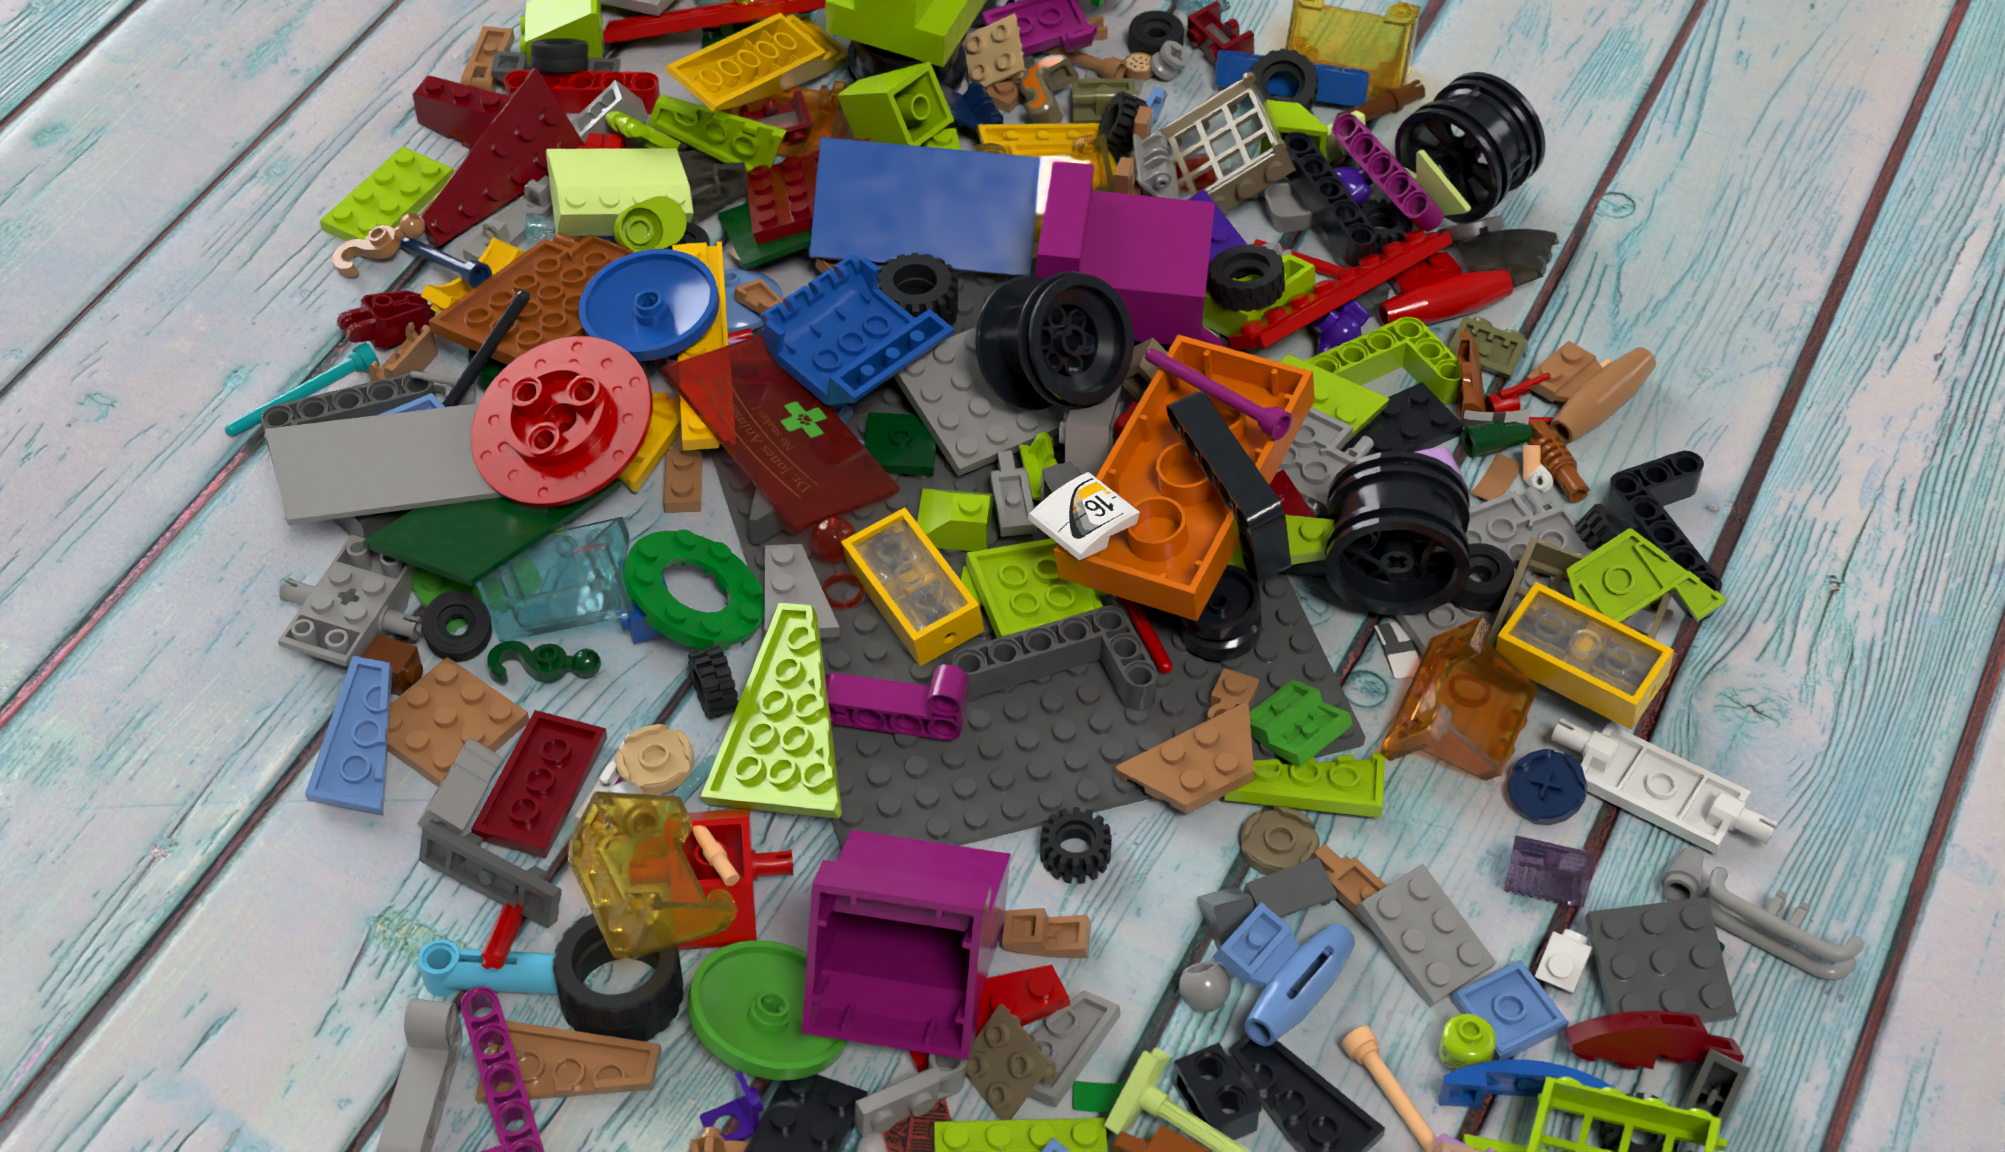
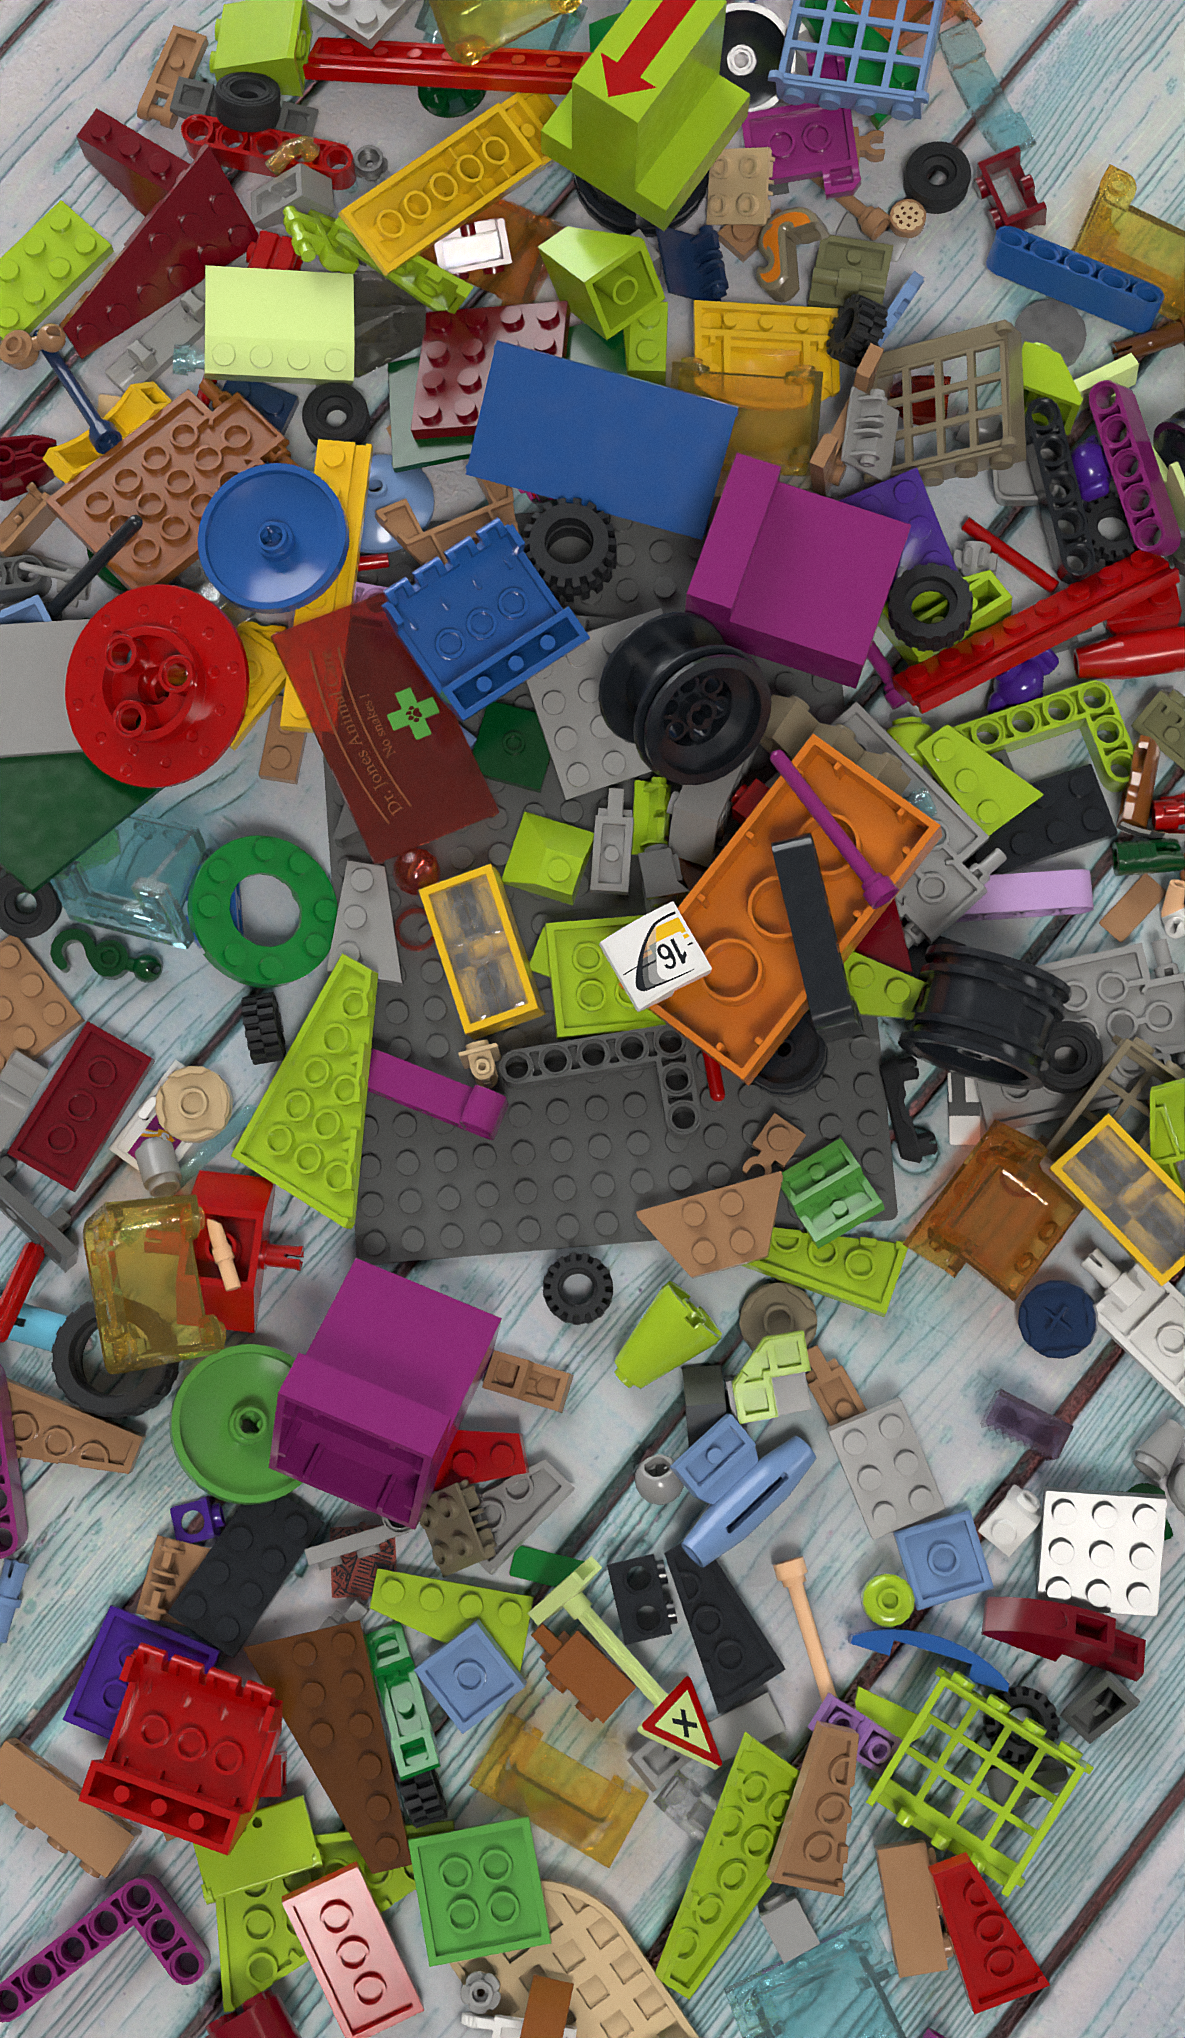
camera: 20 degrees right, 30 degrees up
(604, 76) = (289, 150): none -> clear yellow arm
(650, 224) = (301, 399): lime cap -> none
(672, 88) = (366, 155): none -> flat silver plate
(929, 653) = (481, 1059): none -> tan hinge
(1169, 60) = (932, 219): light grey wheel -> none
(1176, 860) = (665, 1338): none -> lime cone
(1286, 850) = (772, 1358): none -> lime tile
(1292, 63) = (1035, 283): black tyre -> none
(1328, 630) = (893, 1075): none -> black piece

